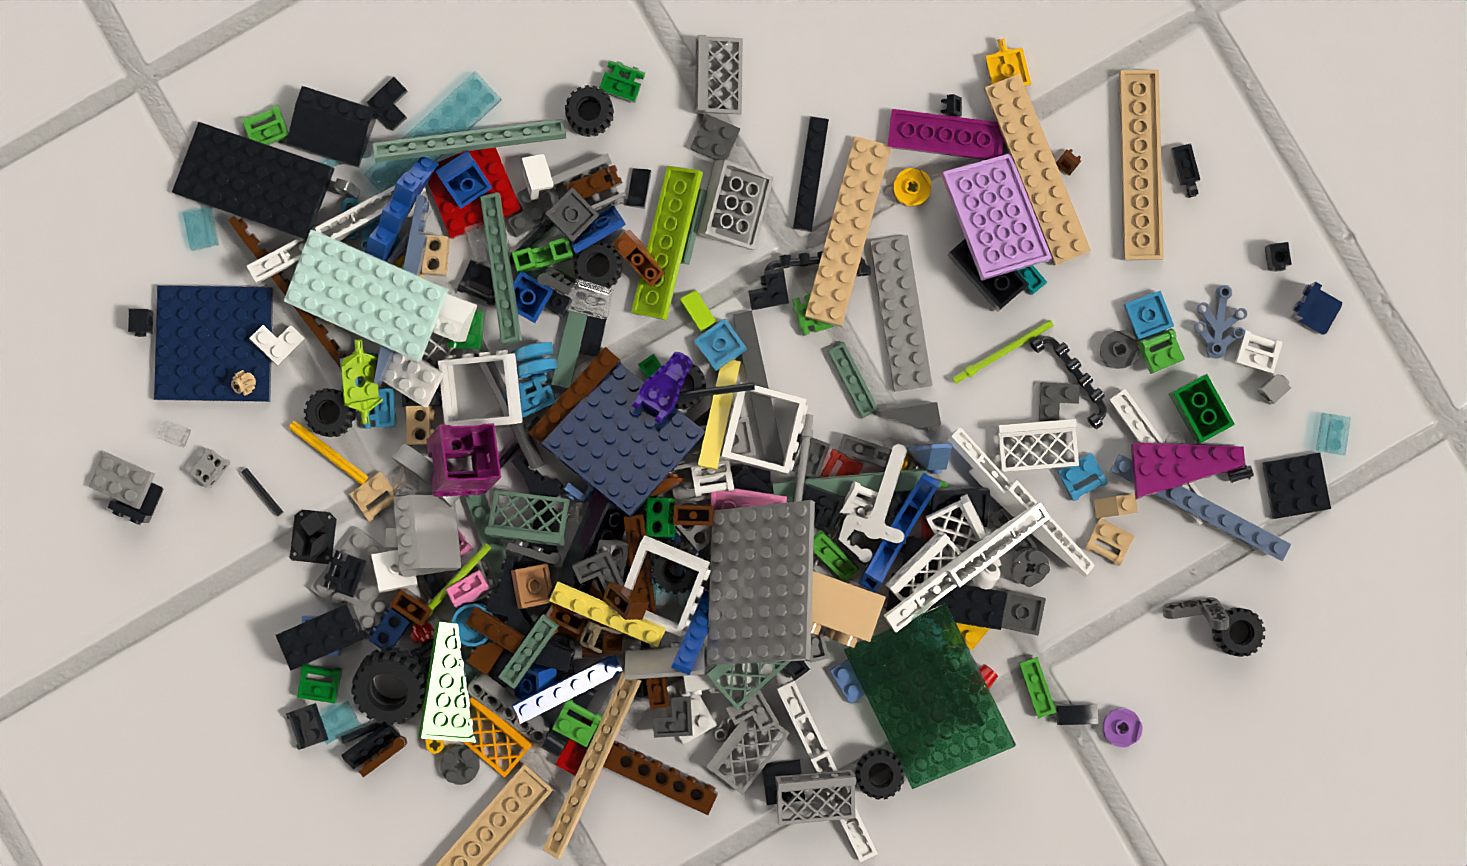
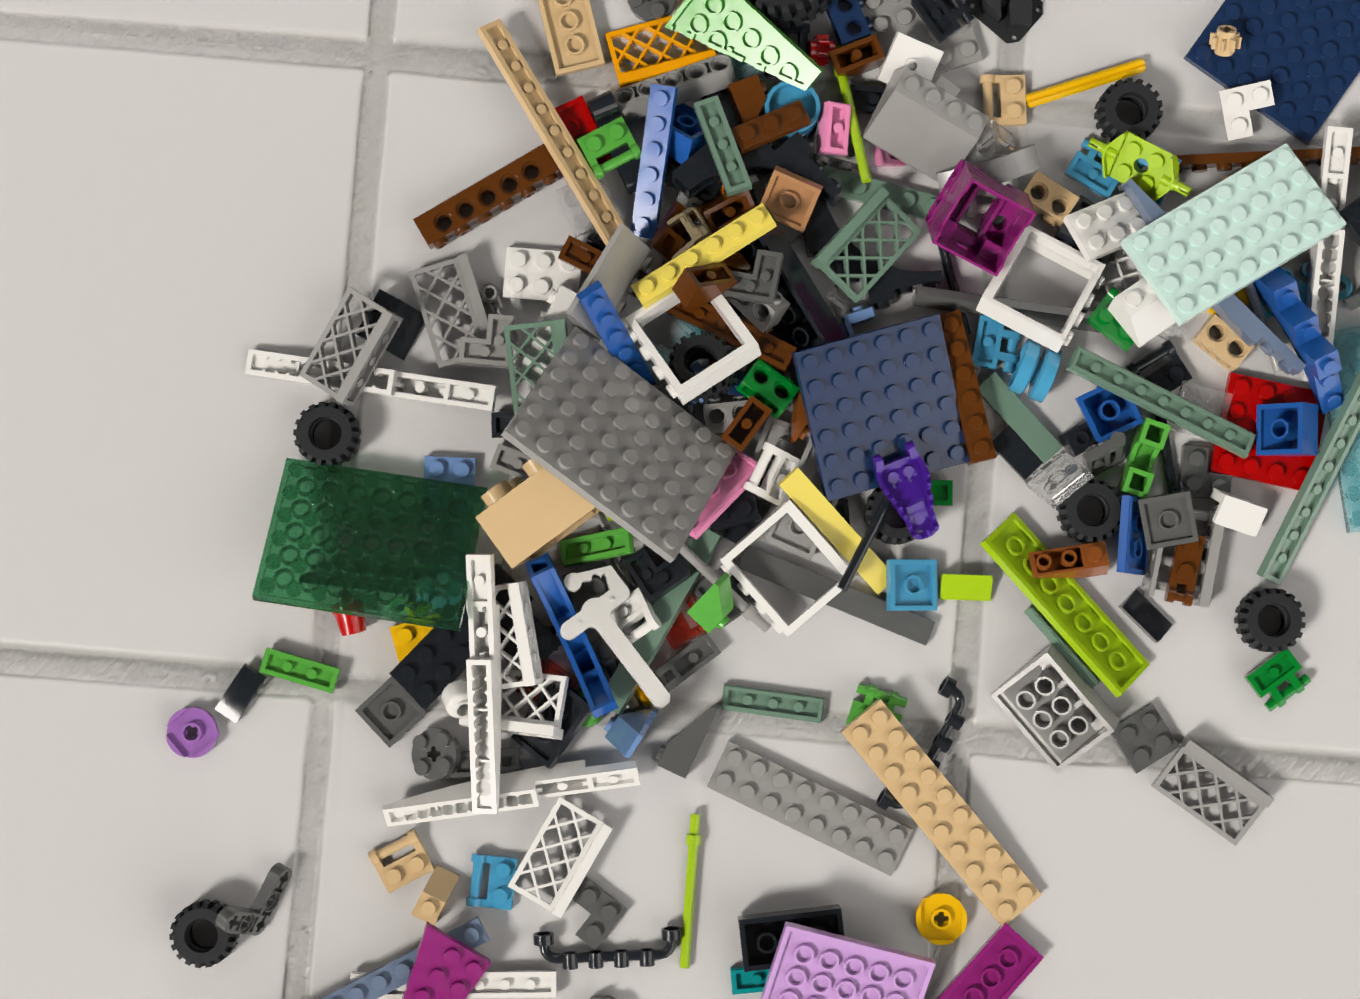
camera: 120 degrees right, 0 degrees up
(535, 552) = (824, 226): dark grey plate -> none
(679, 724) = (532, 255): dark grey plate -> none
(773, 294) = (927, 681): black plate -> none
(810, 174) = (1032, 816): black plate -> none
(819, 457) = (714, 605): none -> bright green slope

